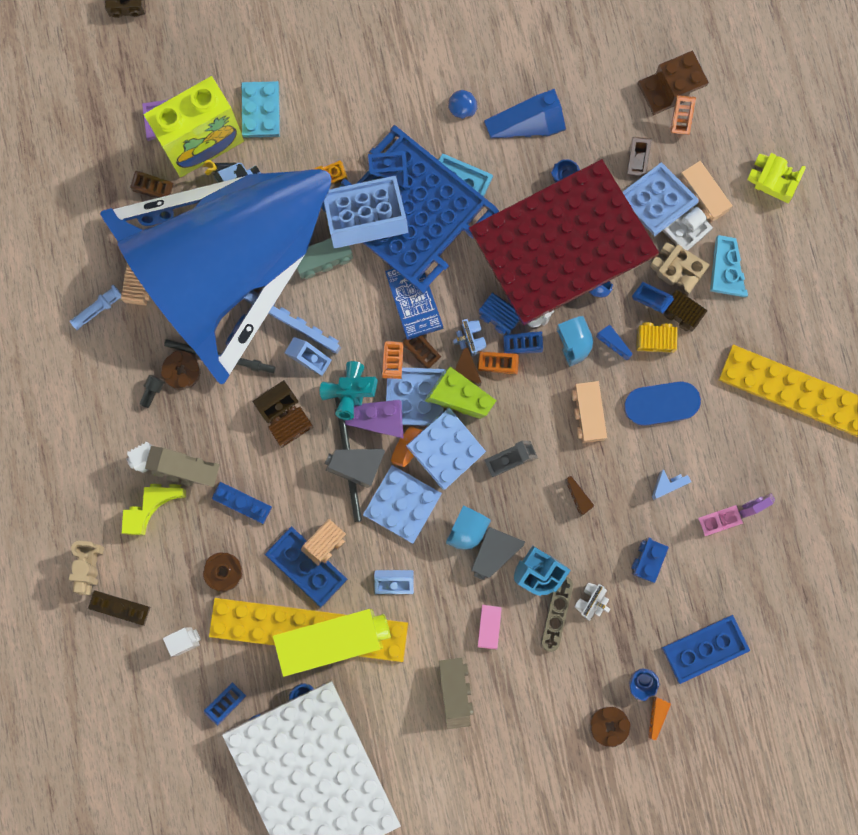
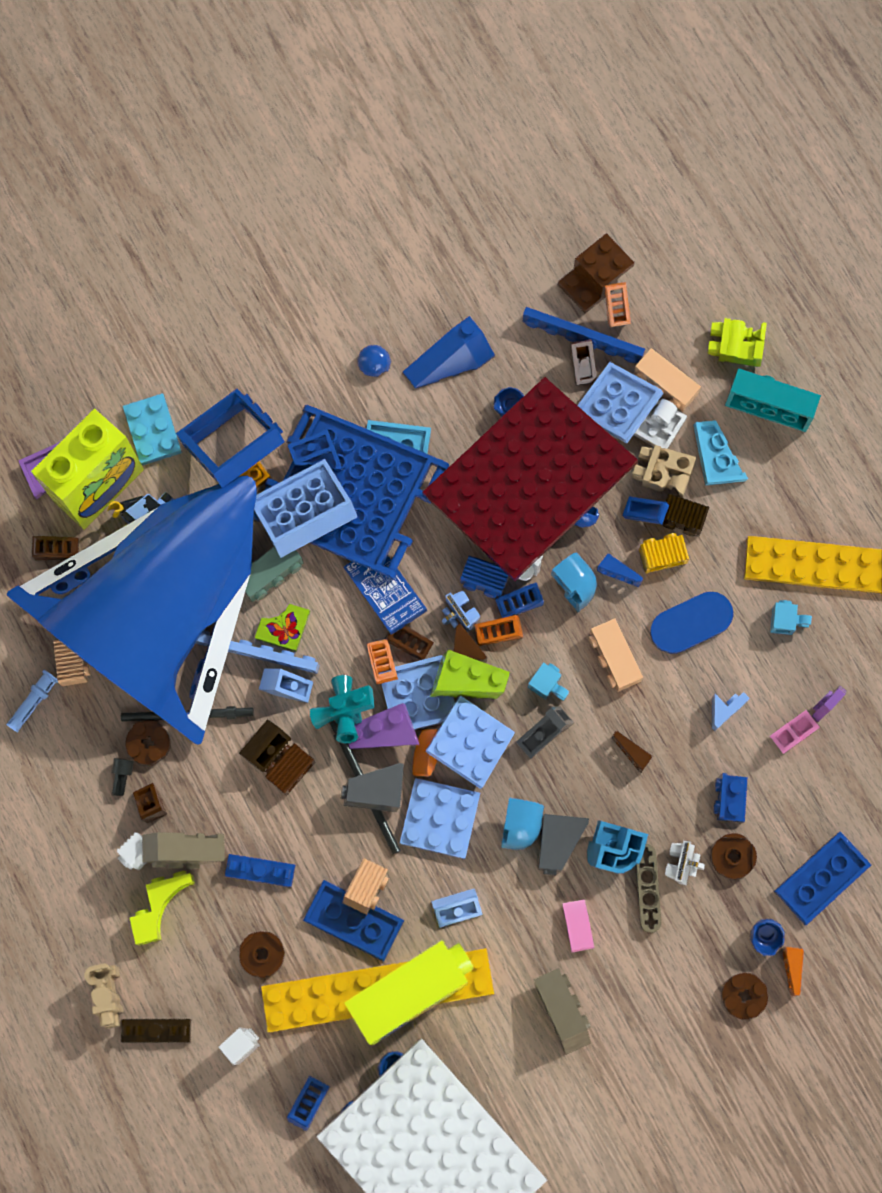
camera: 15 degrees left, 5 degrees down
(167, 421) = (149, 803): none -> reddish brown slope
(316, 114) = (216, 417): none -> blue window
(321, 309) = (284, 629): none -> lime tile
(524, 417) = (547, 681): none -> medium azure brick
(640, 129) = (574, 332): none -> blue plate
(646, 603) = (742, 847): none -> reddish brown plate
(743, 423) = (785, 618): none -> medium azure brick
(790, 235) = (772, 400): none -> teal brick

